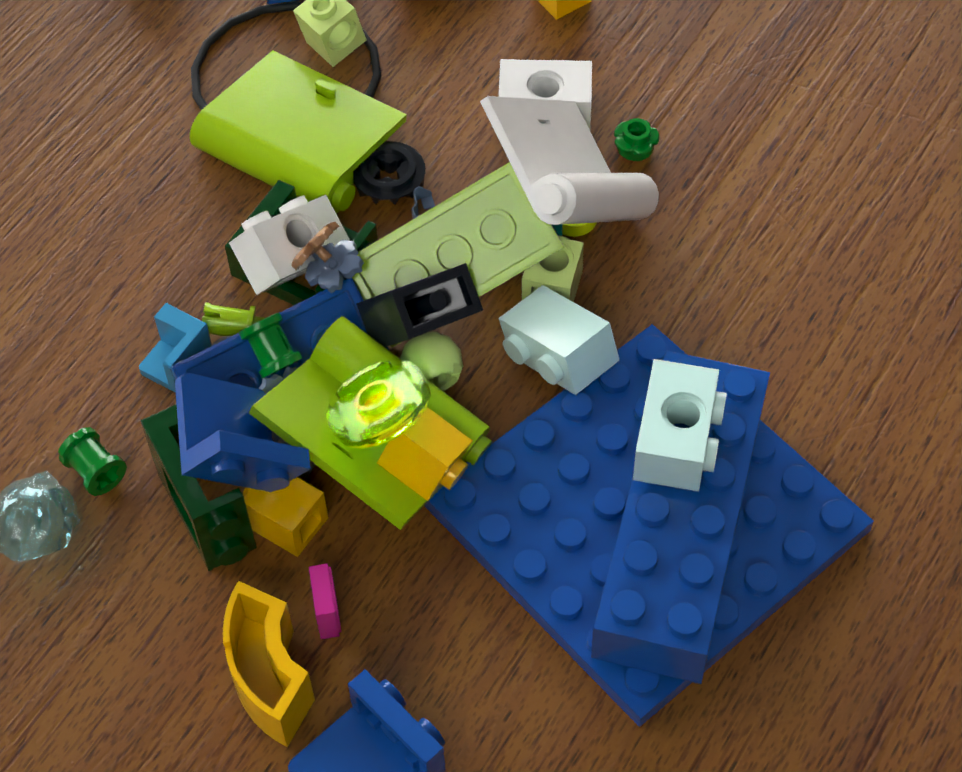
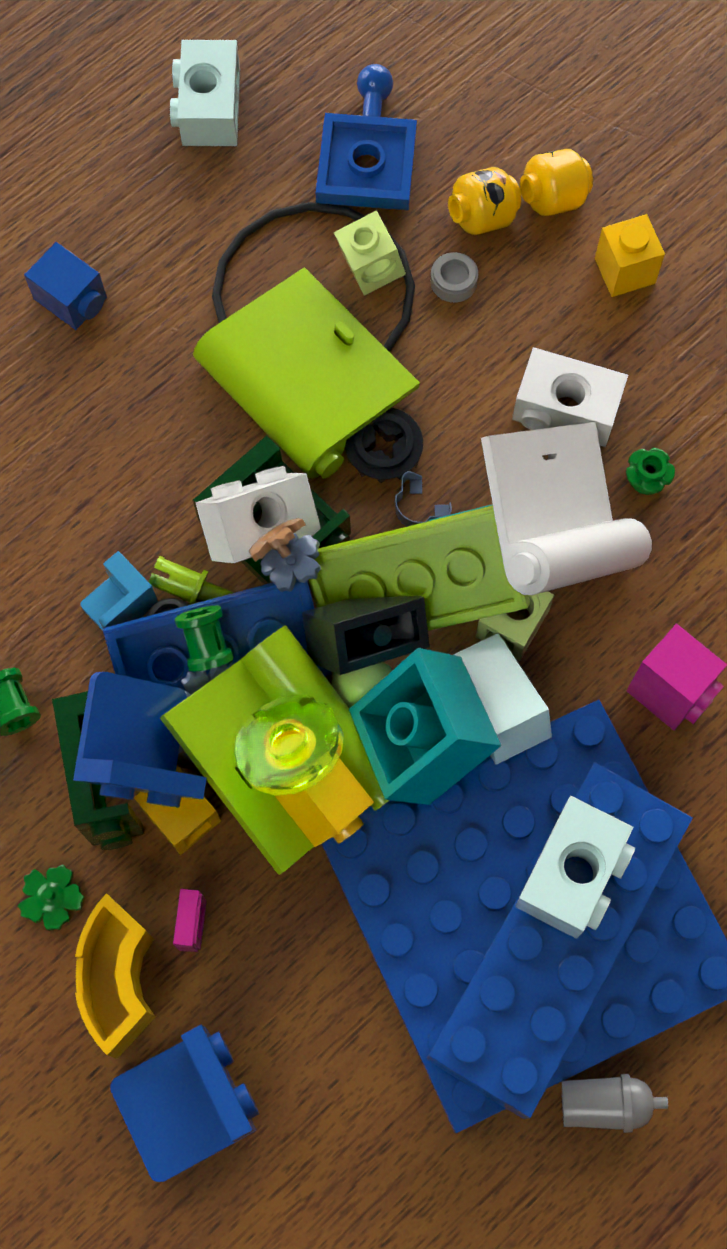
camera: 15 degrees right, 15 degrees up
(54, 113) = (66, 286): none -> blue brick
(179, 624) = (50, 897): none -> green plant
(411, 33) = (454, 277): none -> light grey tile
(499, 366) = (424, 727): none -> teal brick
(717, 280) = (678, 678): none -> dark pink brick
(775, 652) = (609, 1103): none -> light grey piece

